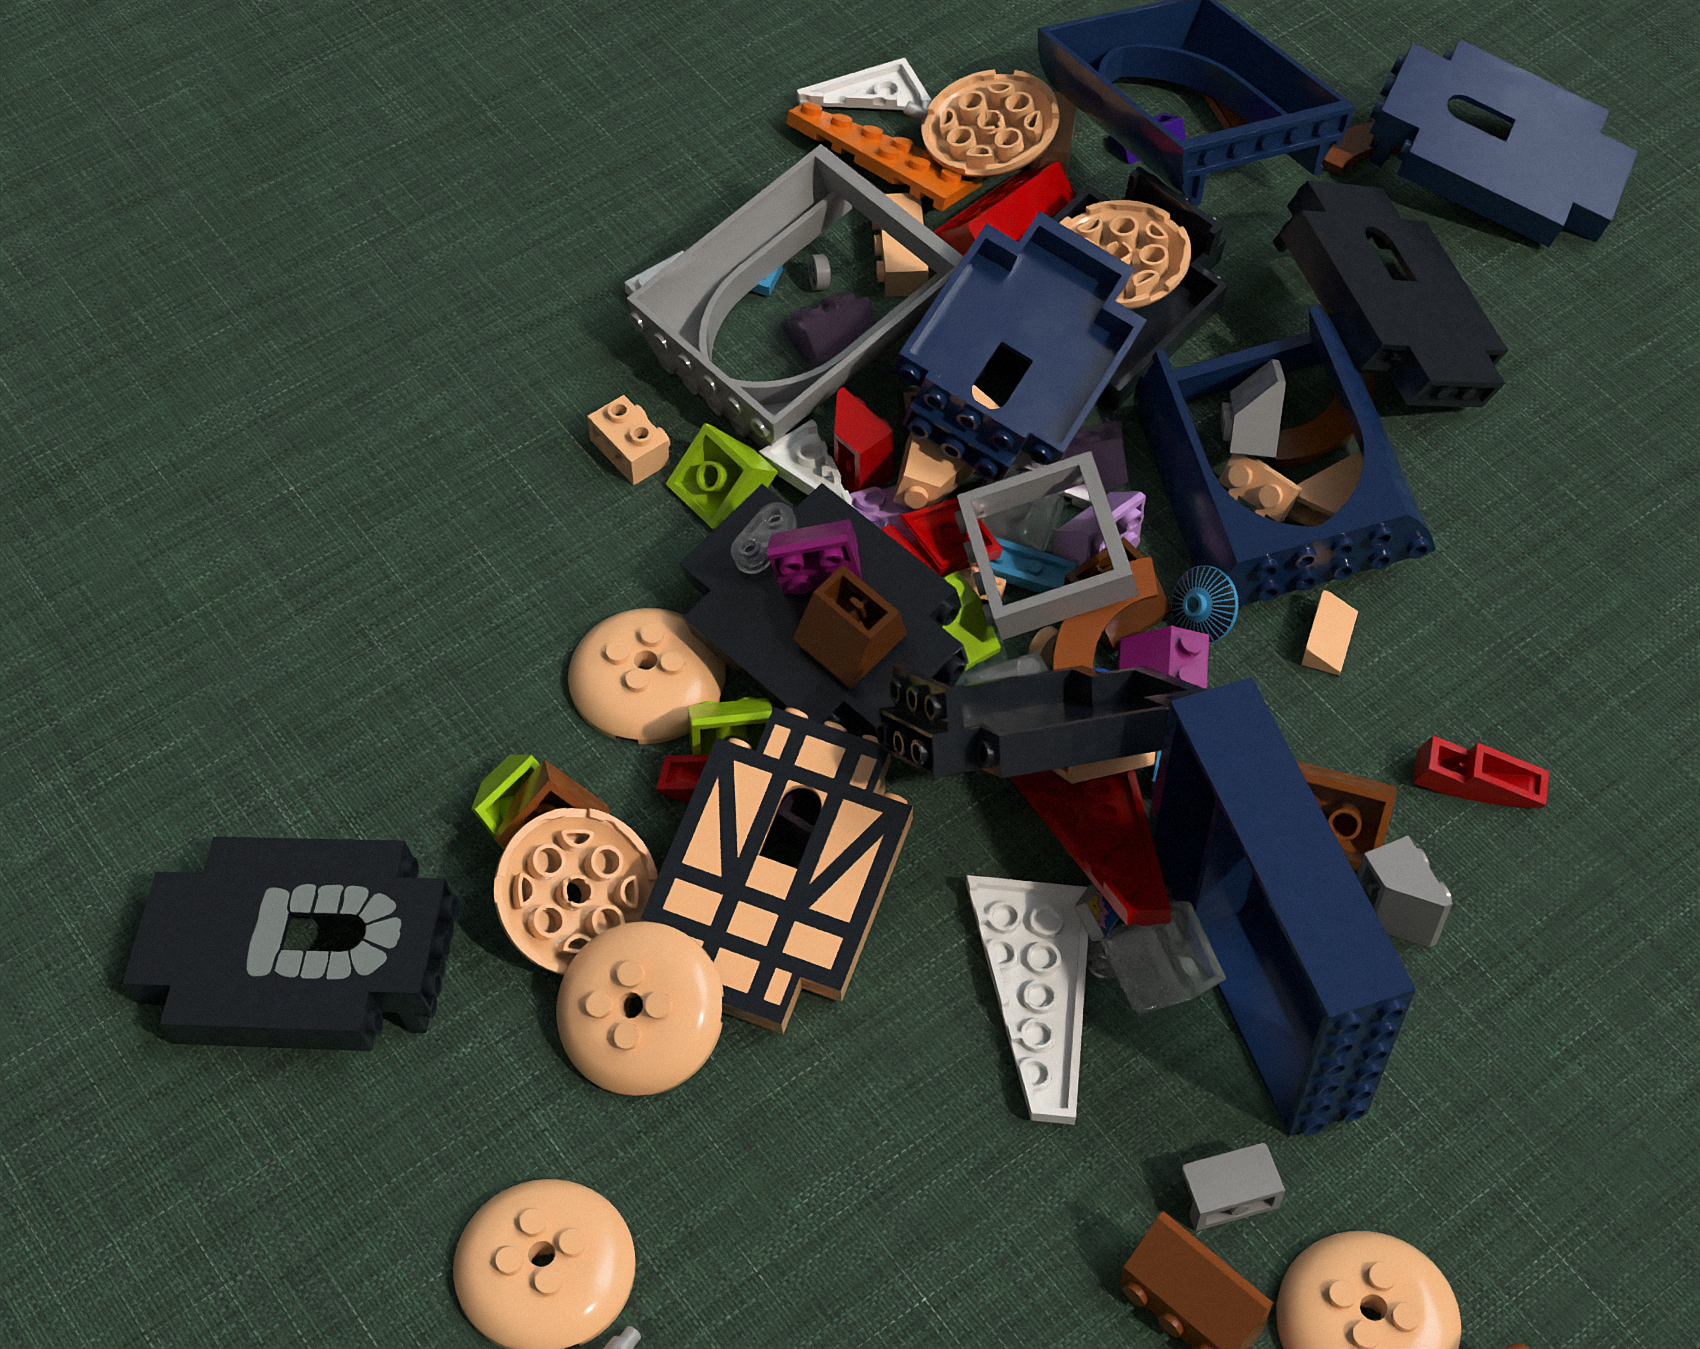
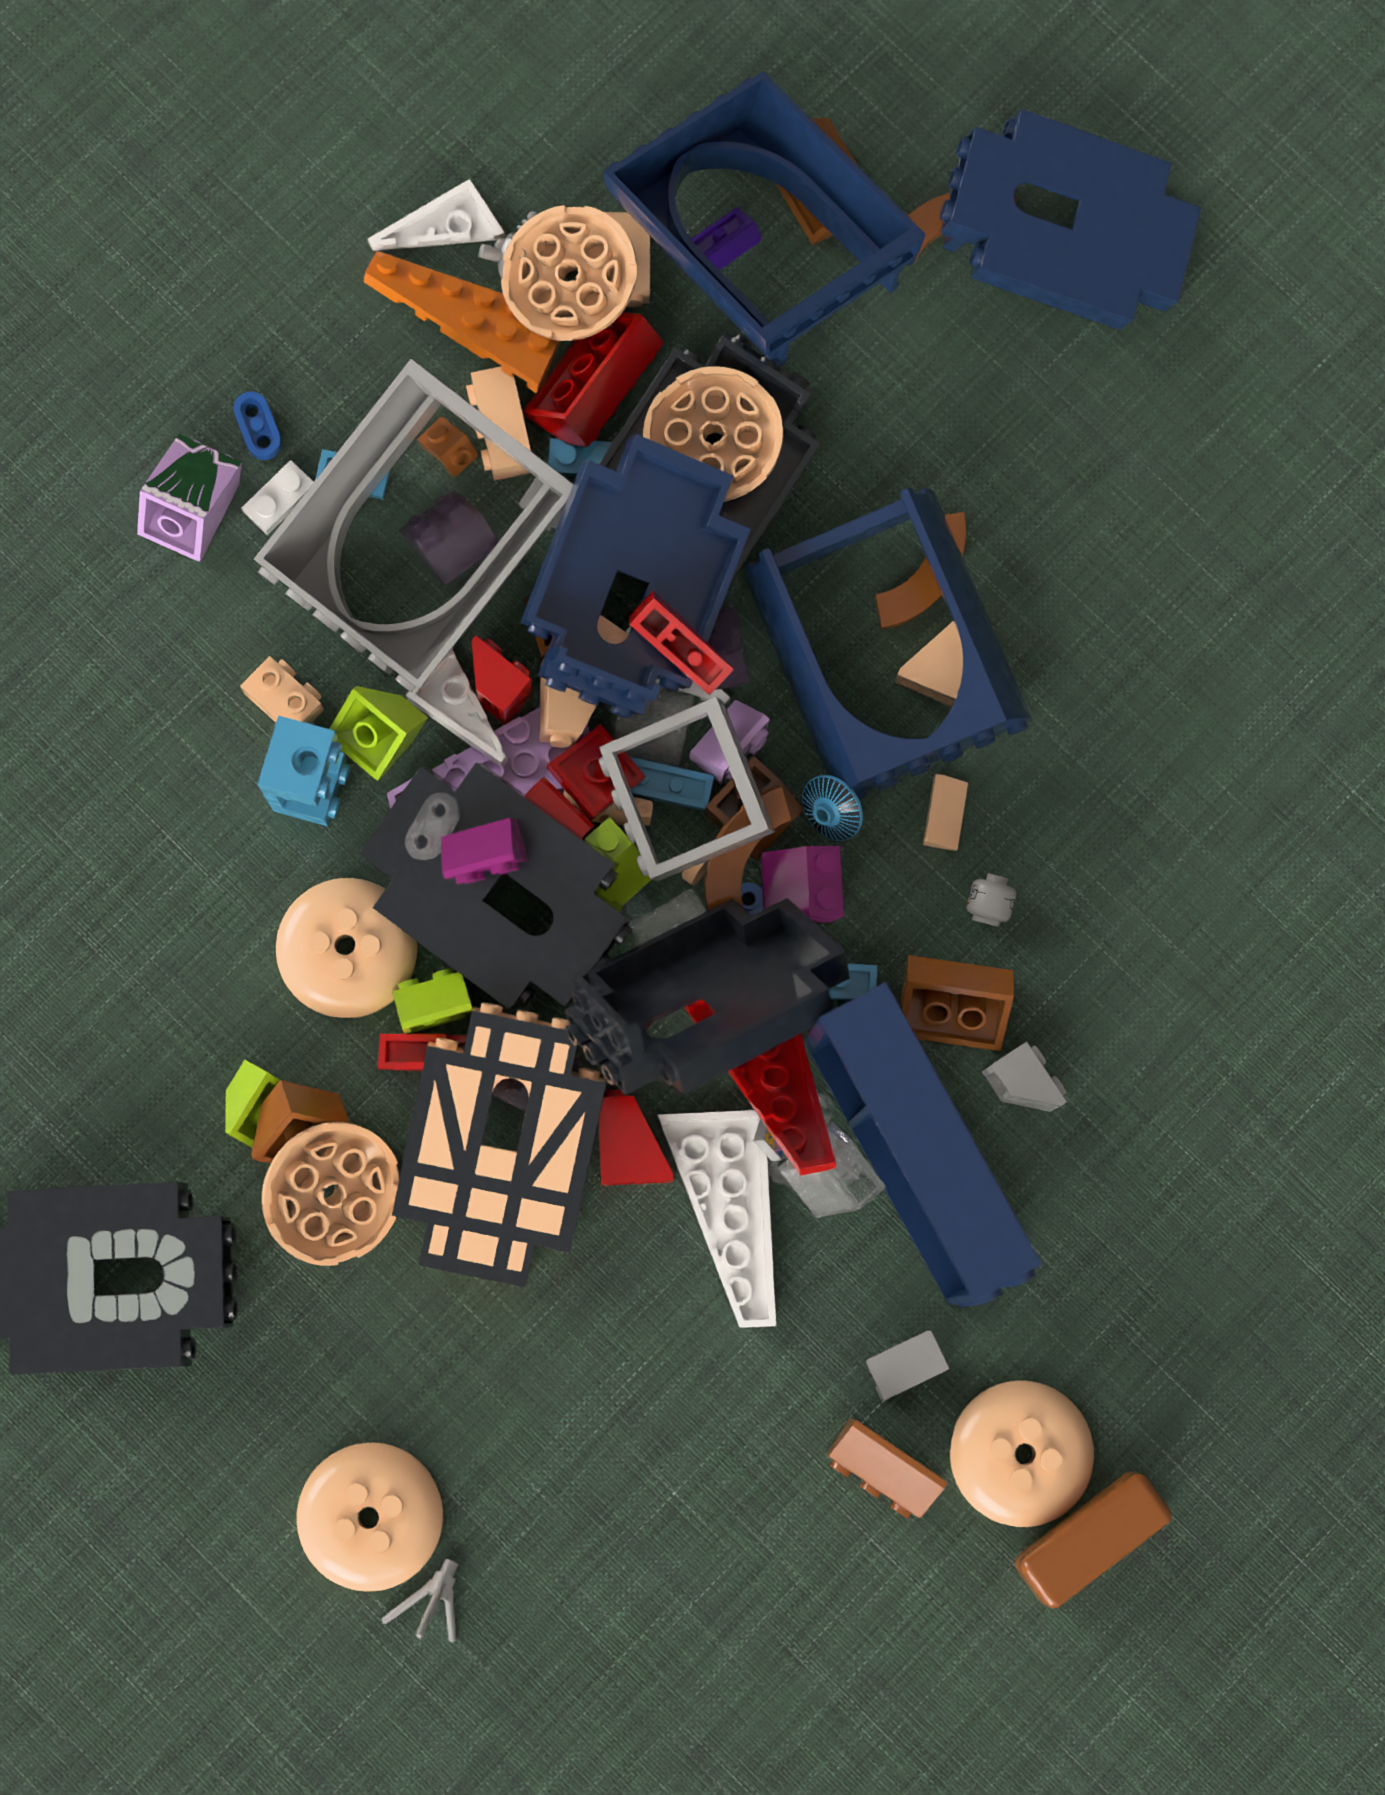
camera: 20 degrees left, 25 degrees up
(571, 264) = (187, 497): none -> lavender slope
(624, 466) = (304, 771): none -> dark azure plate
(656, 220) = (257, 427): none -> blue plate
(677, 1017) = (422, 1265): light nougat brick -> none
(819, 272) = (427, 468): light grey tile -> none
(847, 257) = (448, 446): none -> dark orange bracket
(848, 627) = (525, 921): reddish brown slope -> none
(928, 904) = (628, 1145): none -> red slope
(1057, 400) = (680, 642): none -> red slope
(1254, 412) = (858, 599): light grey slope -> none
(1260, 486) = (871, 672): light nougat plate -> none
(1376, 719) = (991, 900): none -> light grey head
(1417, 330) = (990, 487): black panel -> none
(1480, 774) = (1084, 942): red slope -> none

